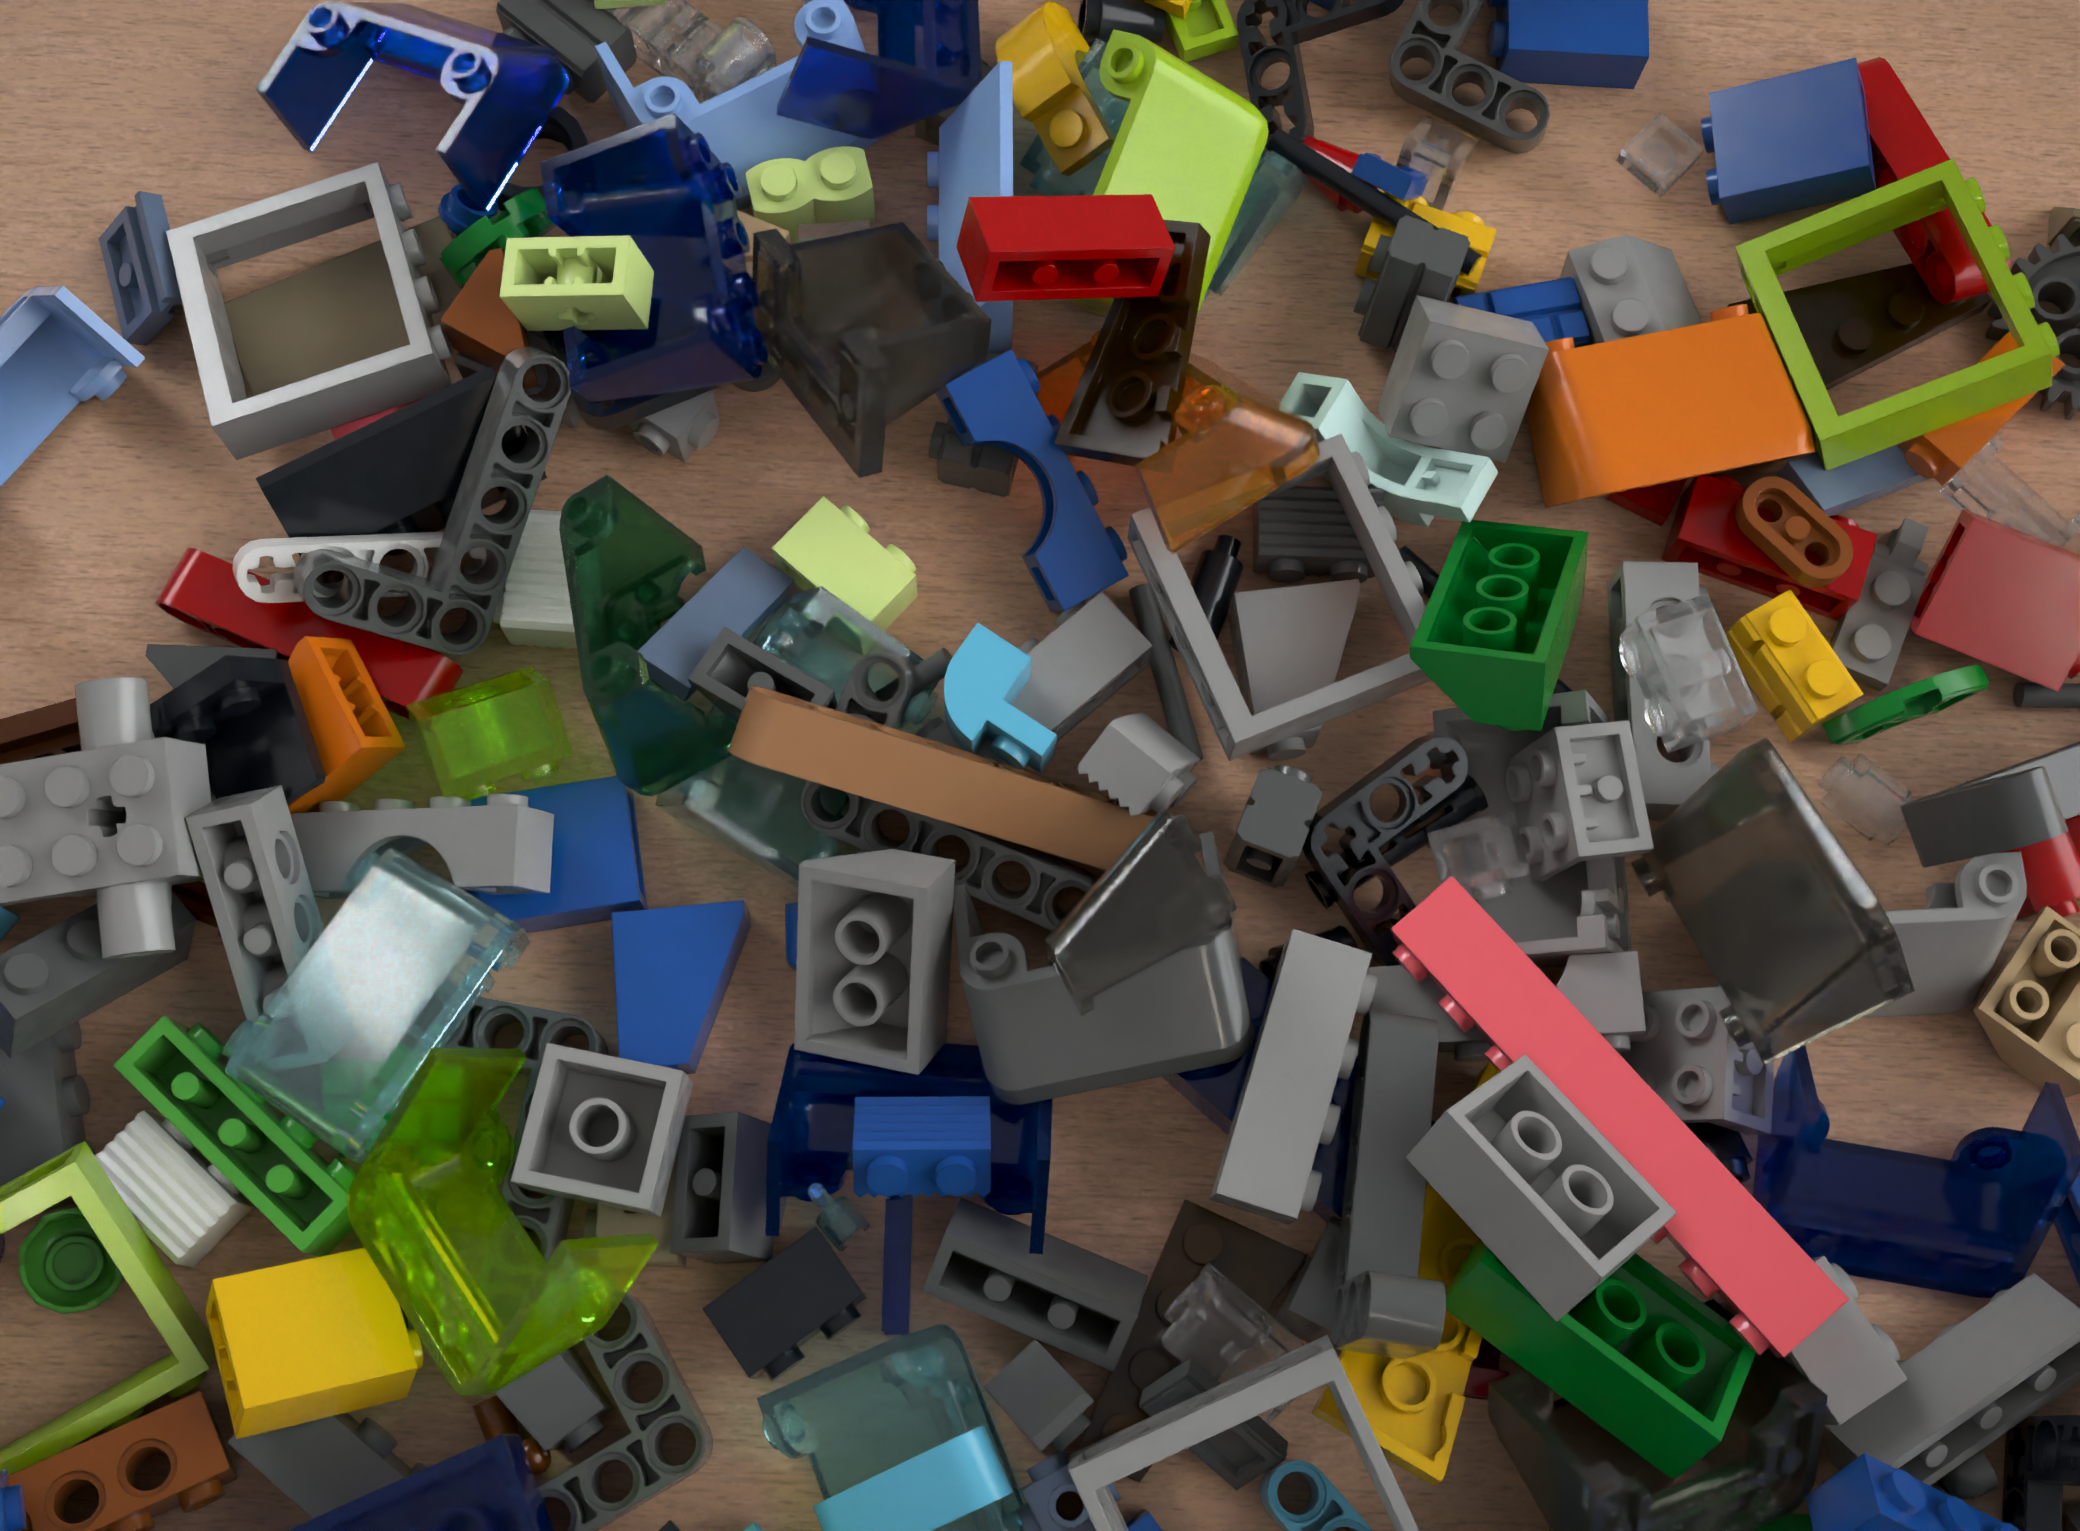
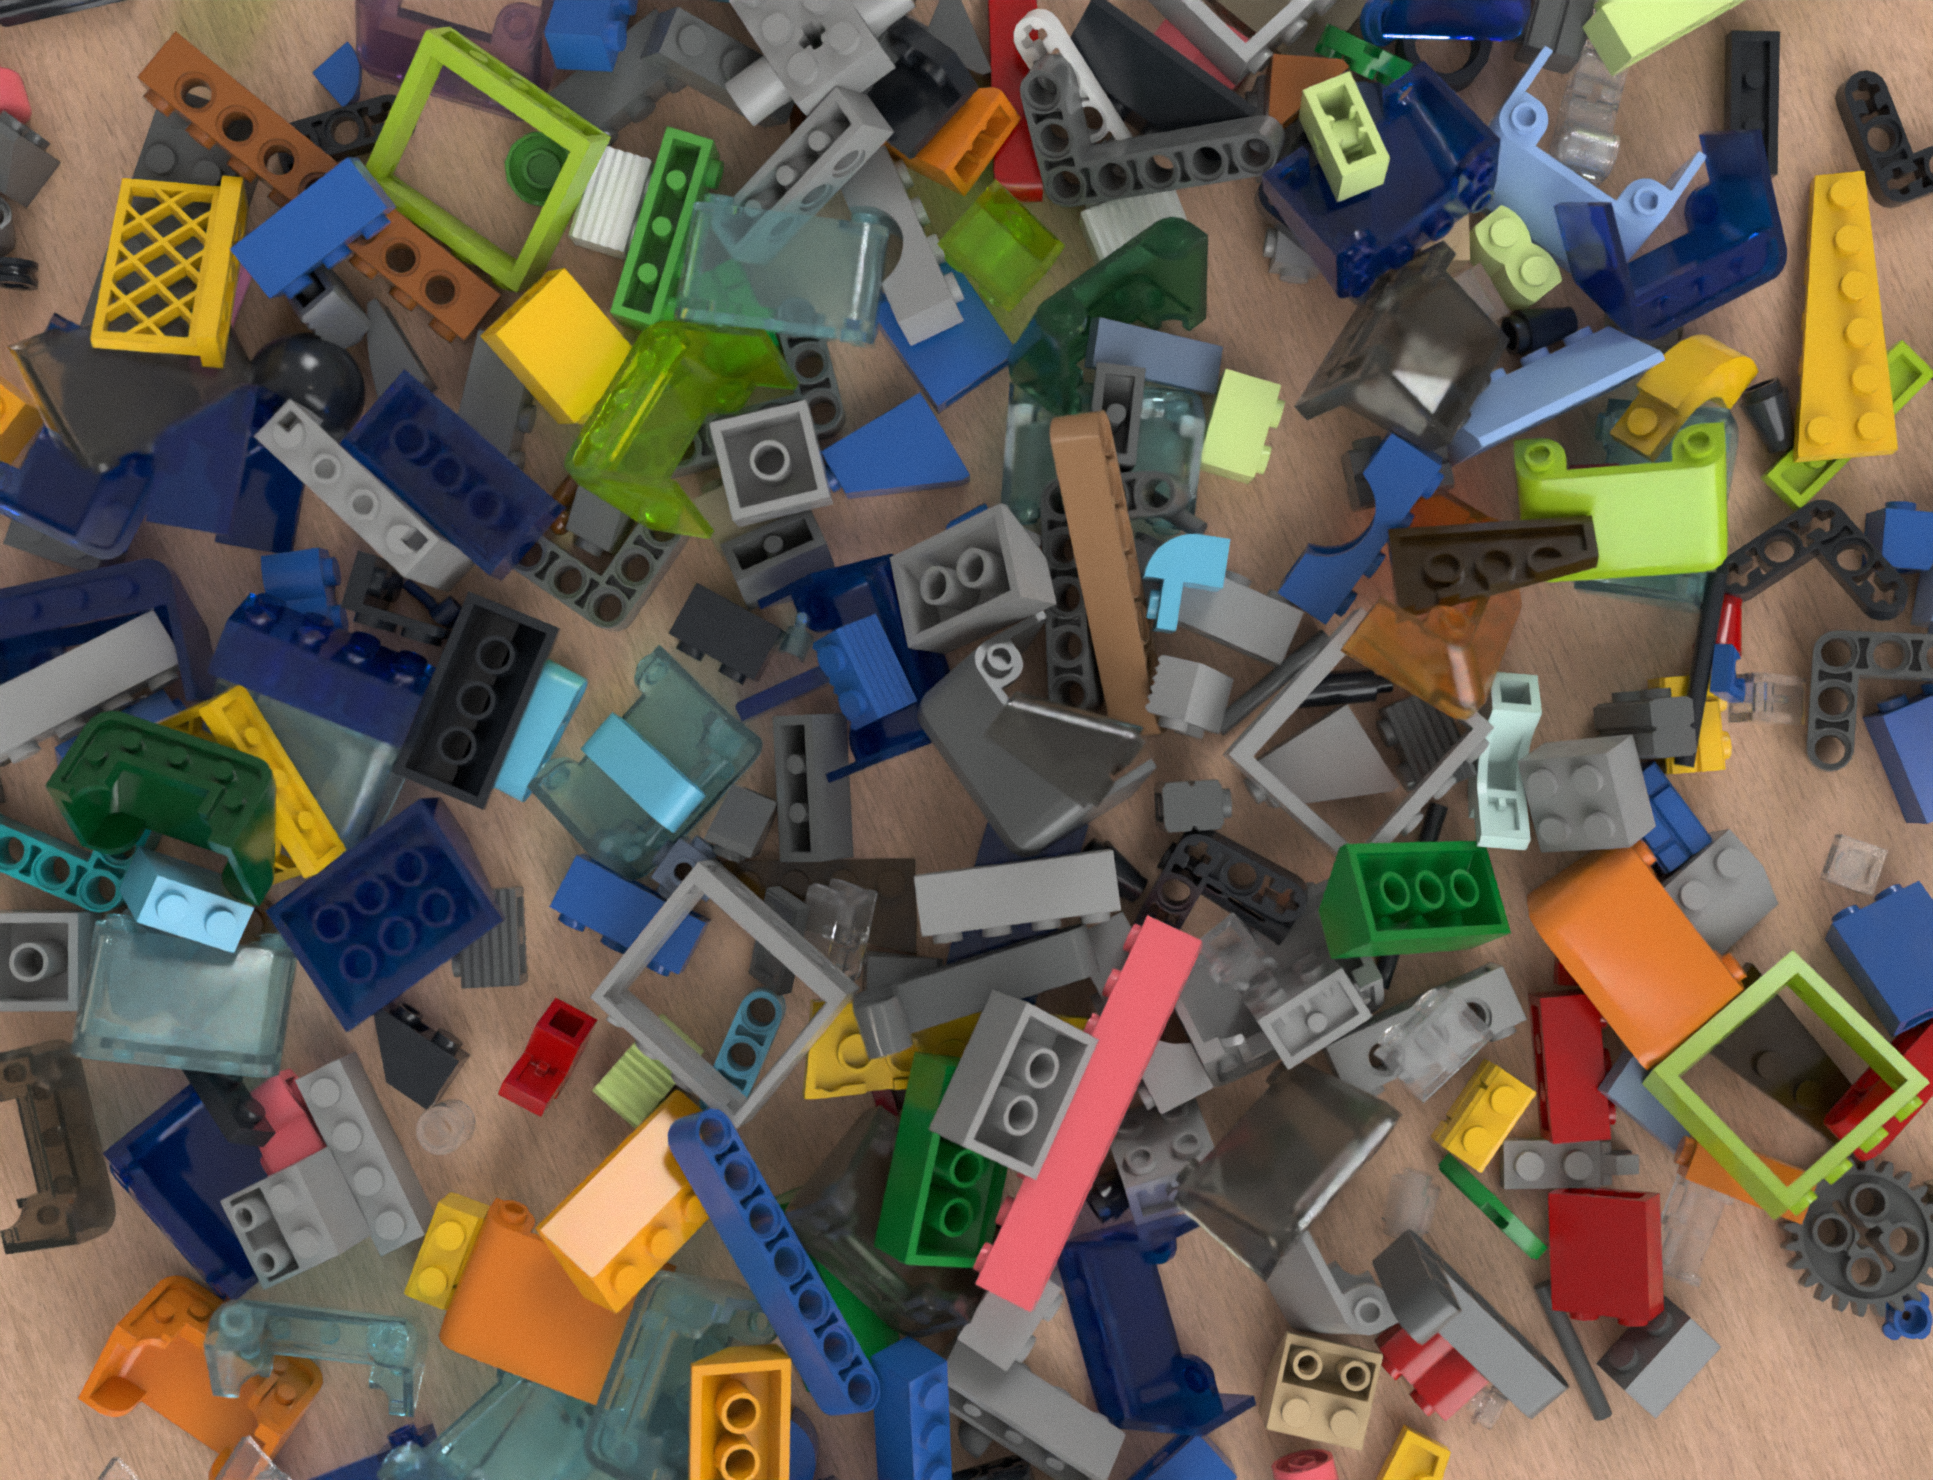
camera: 70 degrees right, 15 degrees up
(904, 199) = (1537, 328): none -> black cone
(1064, 247) = (1527, 469): red brick -> none
(1796, 528) = (1584, 1079): dark orange plate -> none

